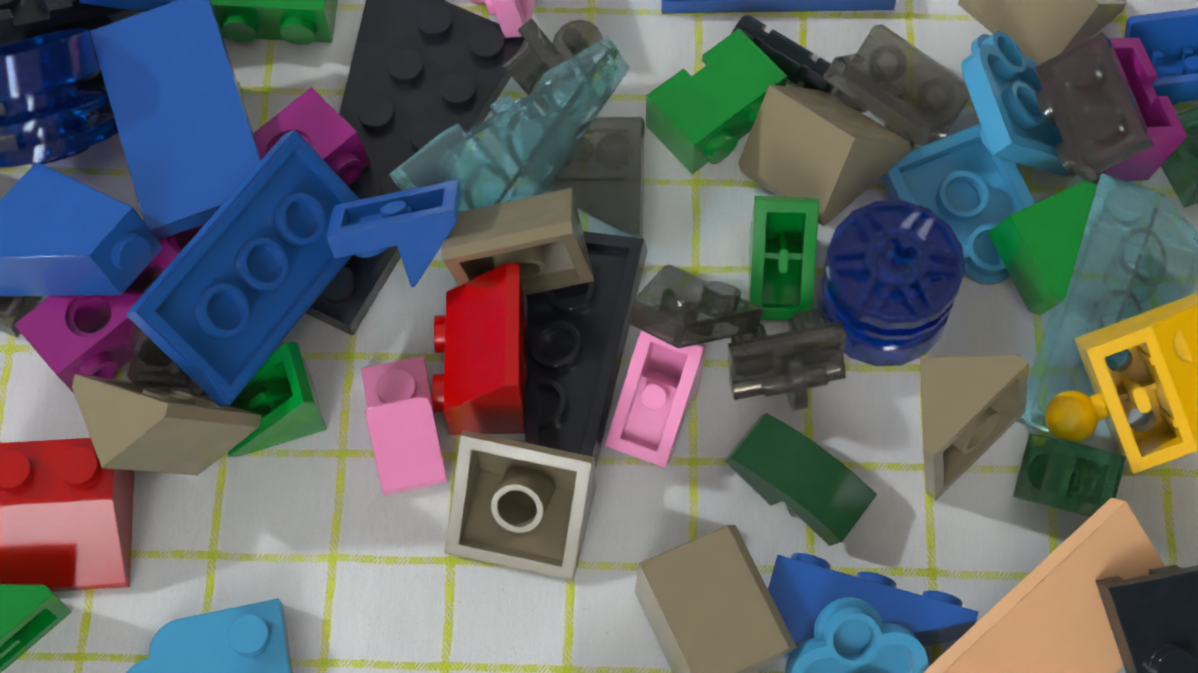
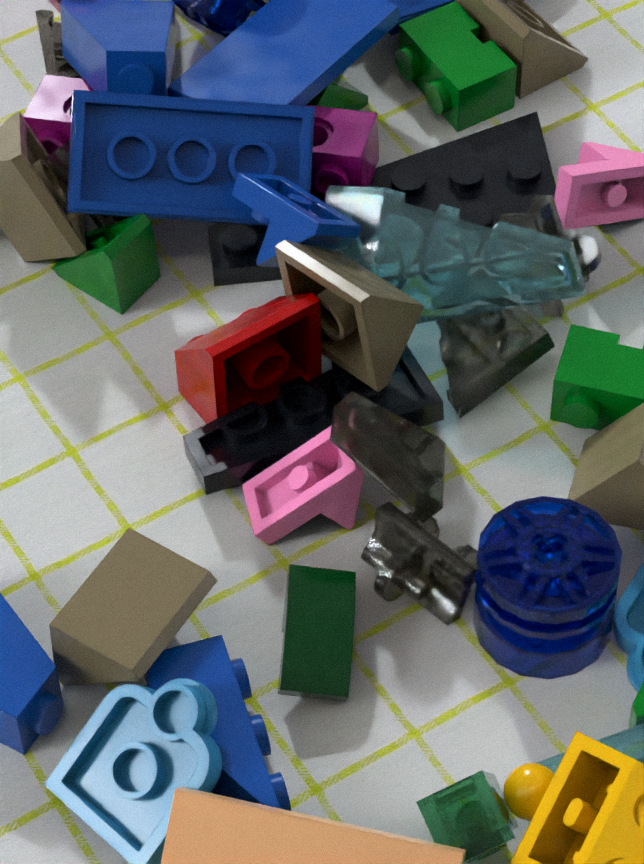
camera: 55 degrees right, 15 degrees down
(403, 425) = (142, 354): bright pink slope -> none
(520, 505) = (143, 455): dark tan slope -> none
(783, 255) = (520, 475): green slope -> none
(966, 410) = (451, 698): dark tan slope -> none

